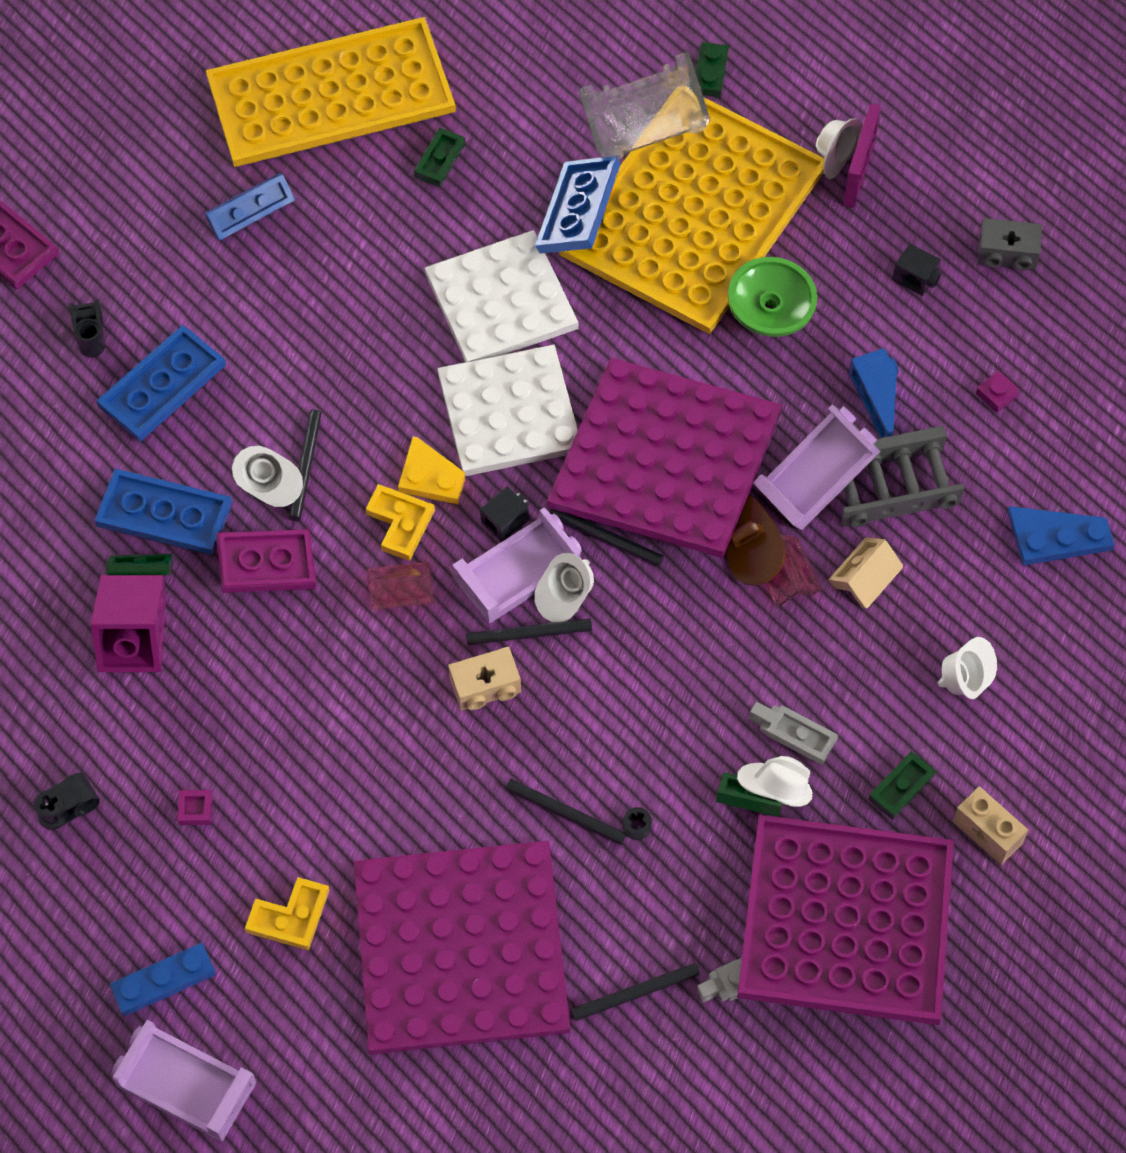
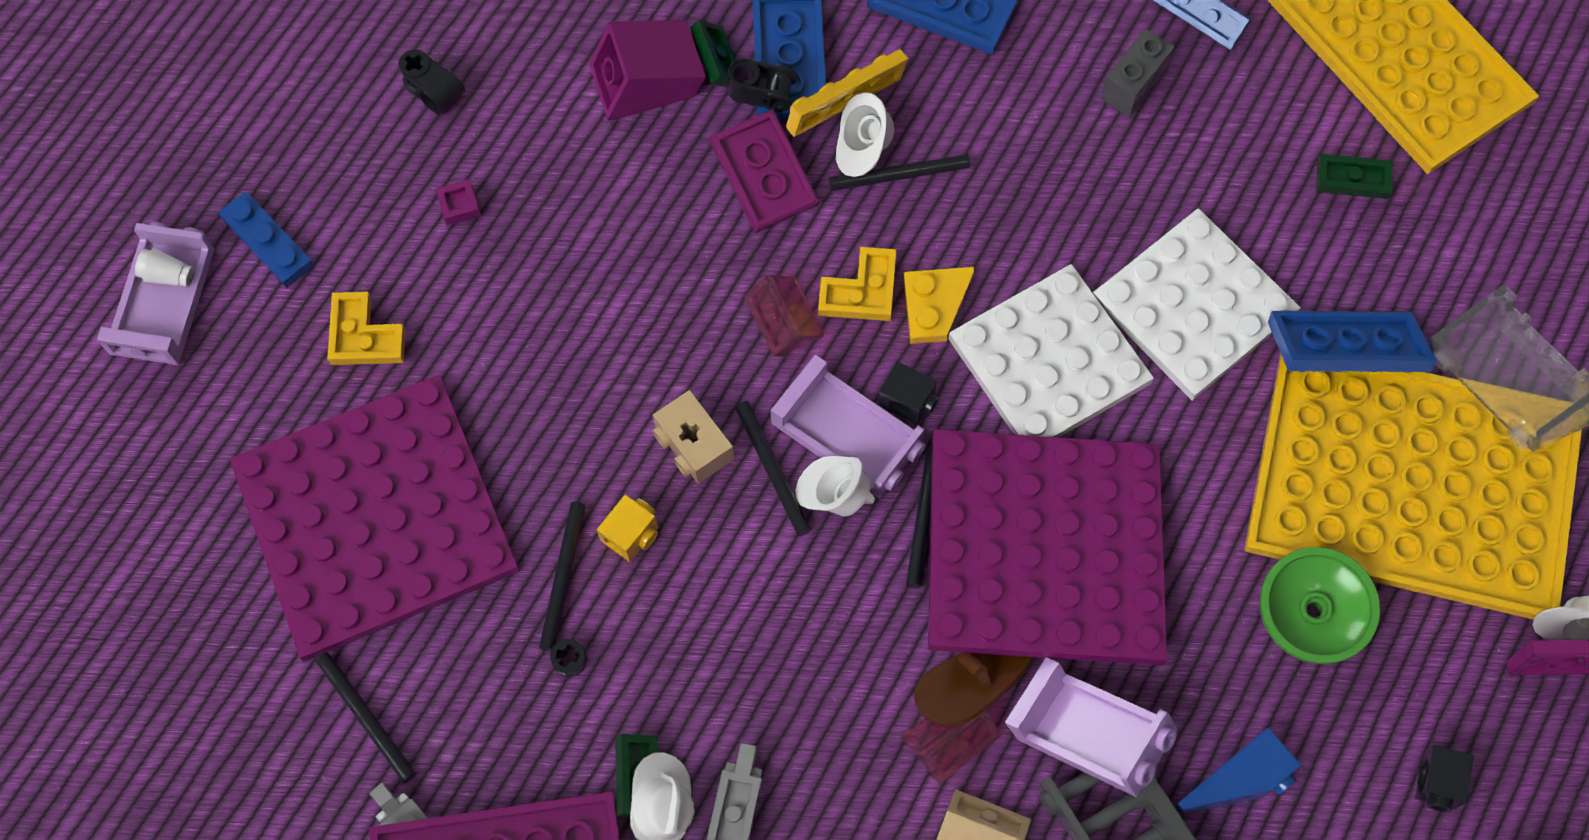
camera: 75 degrees right, 5 degrees up
(162, 1069) = (162, 268): none -> white cone
(194, 529) = (763, 84): none -> black piece
(227, 482) = (834, 96): none -> yellow plate
(292, 266) = (1137, 72): none -> dark grey brick
(546, 747) = (629, 527): none -> yellow brick

